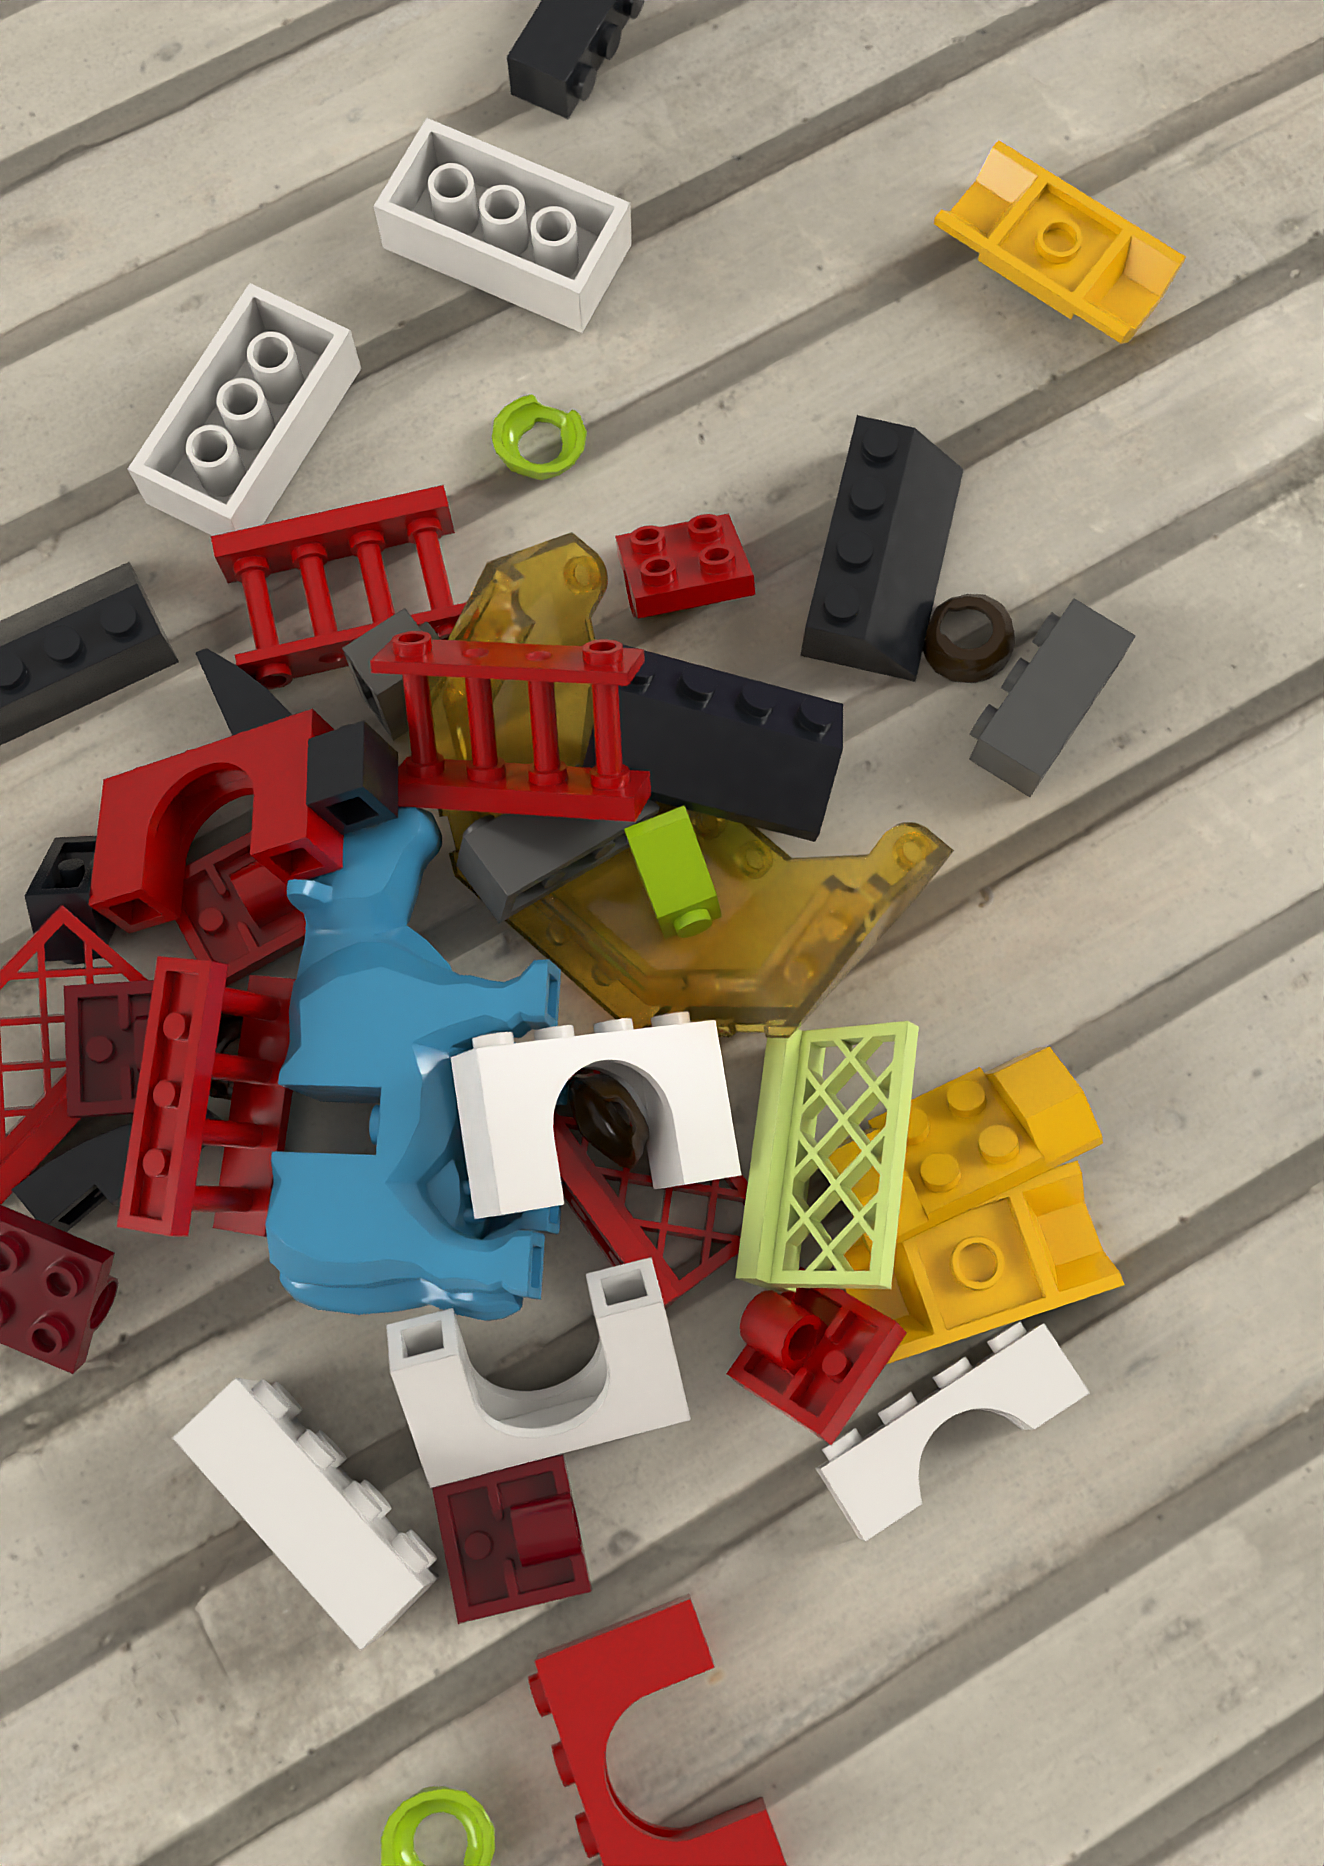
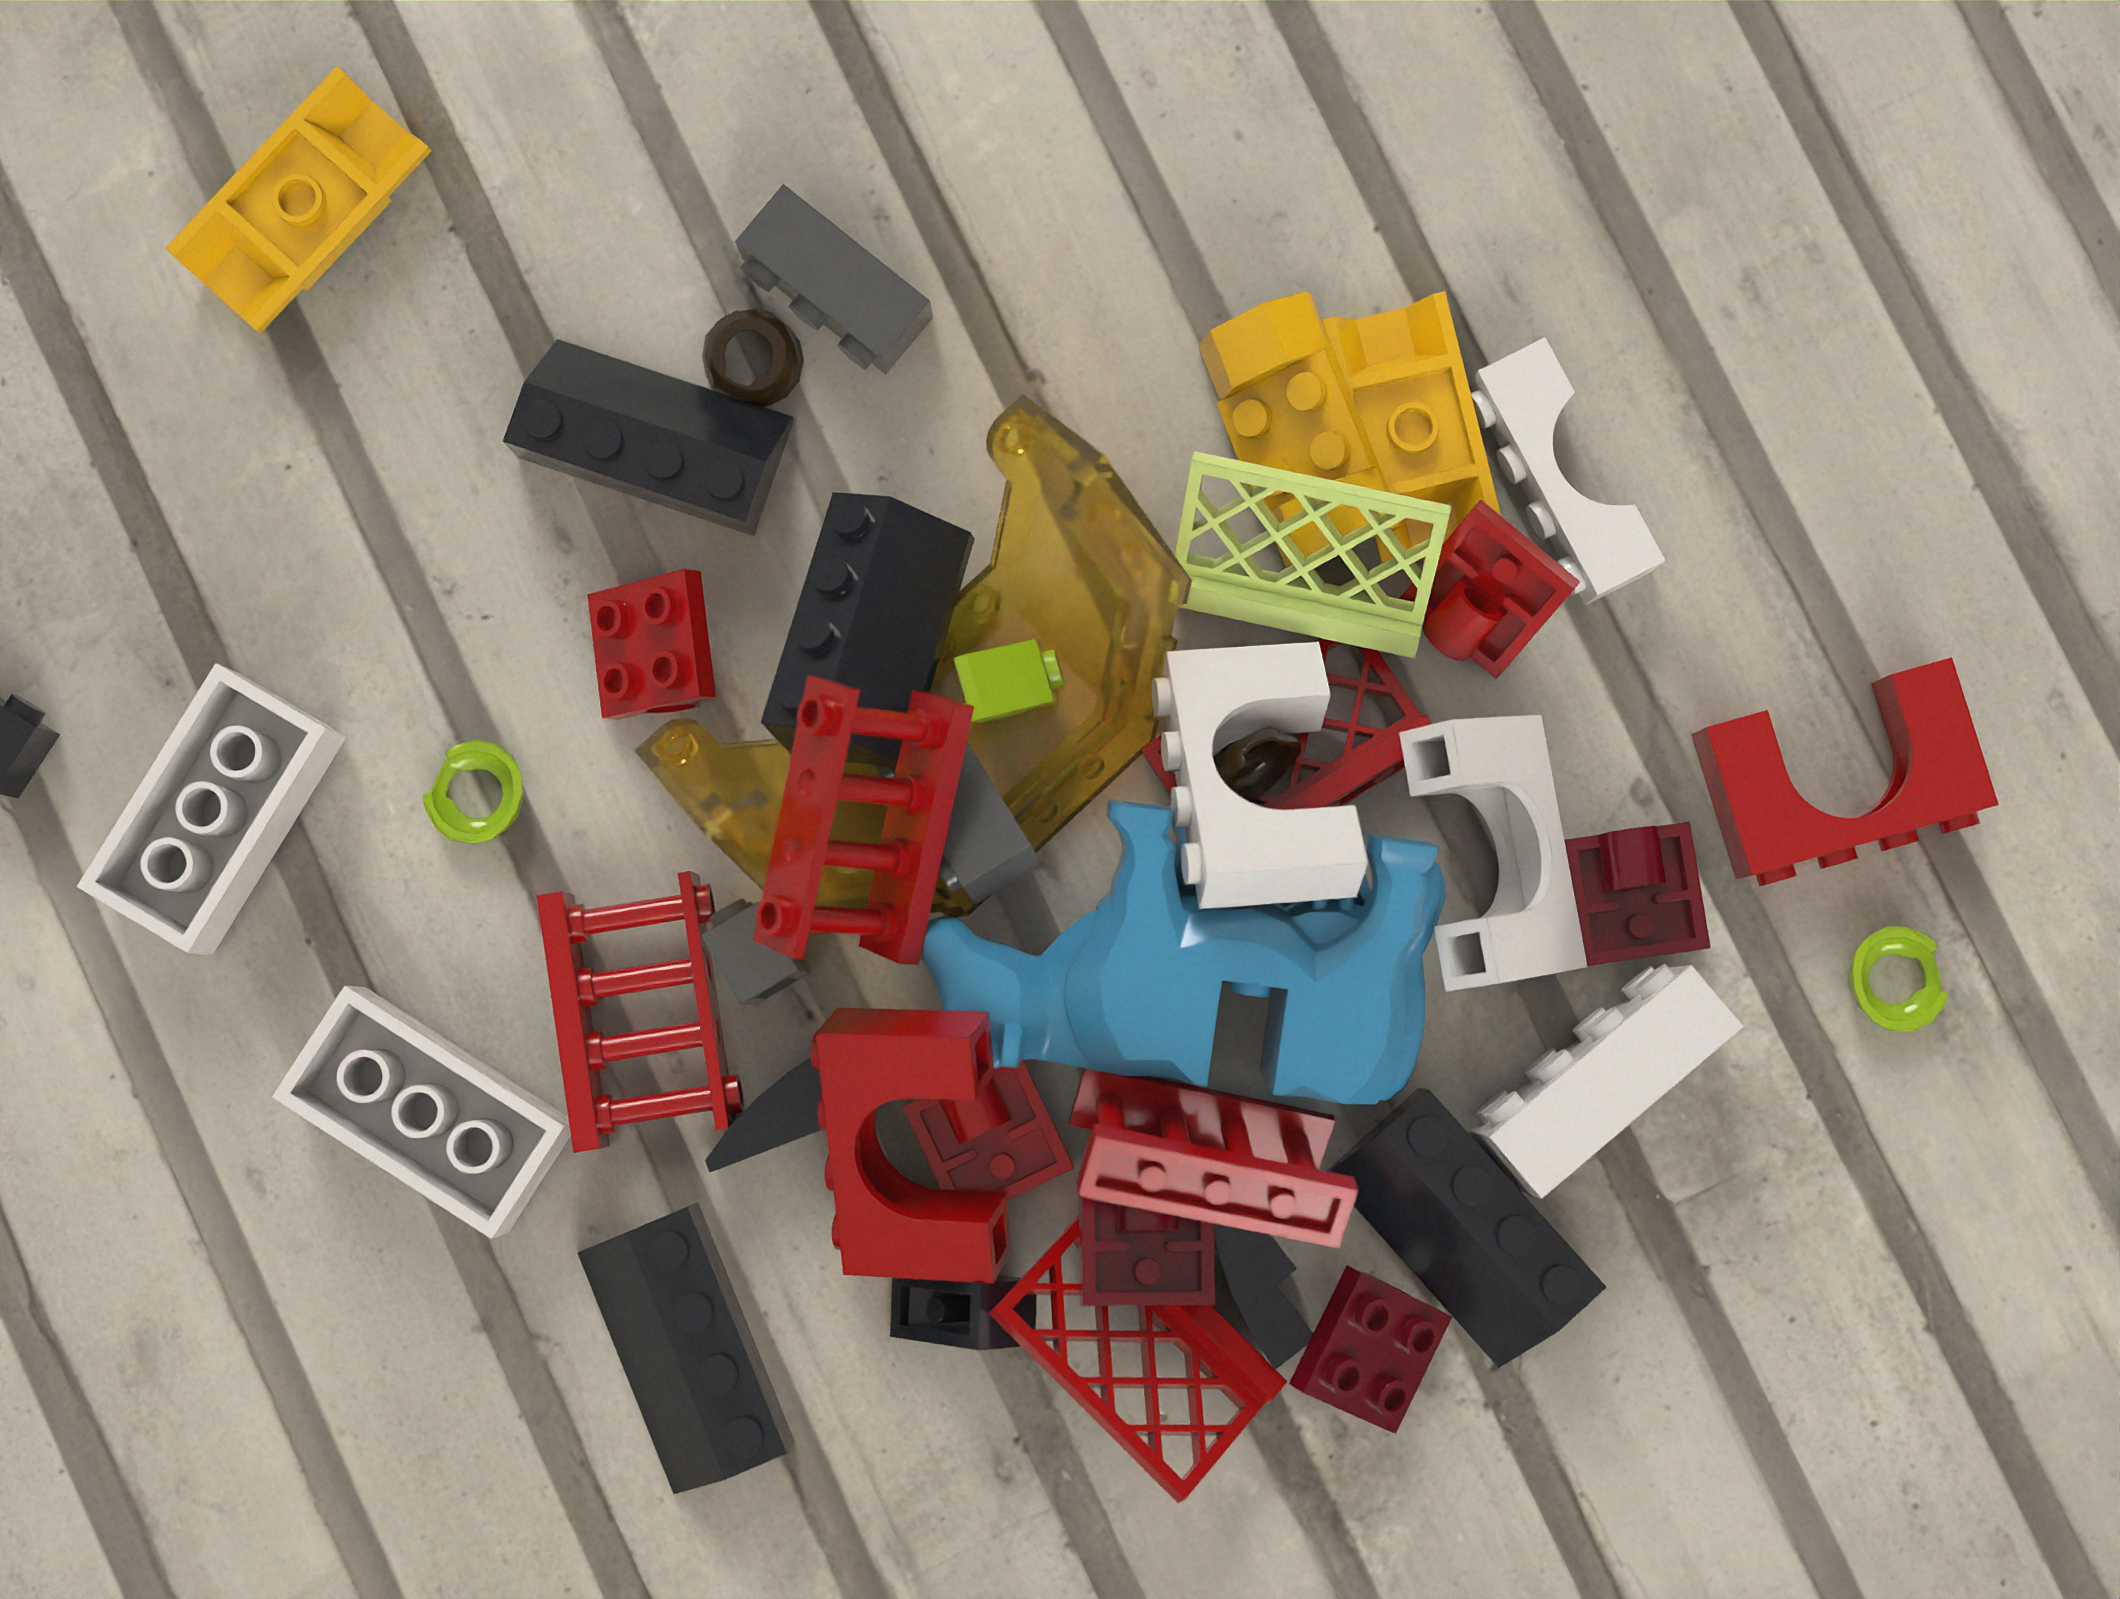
camera: 85 degrees left, 10 degrees up
(118, 1416) = (1466, 1229): none -> black slope
(352, 778) = (897, 993): black brick -> none

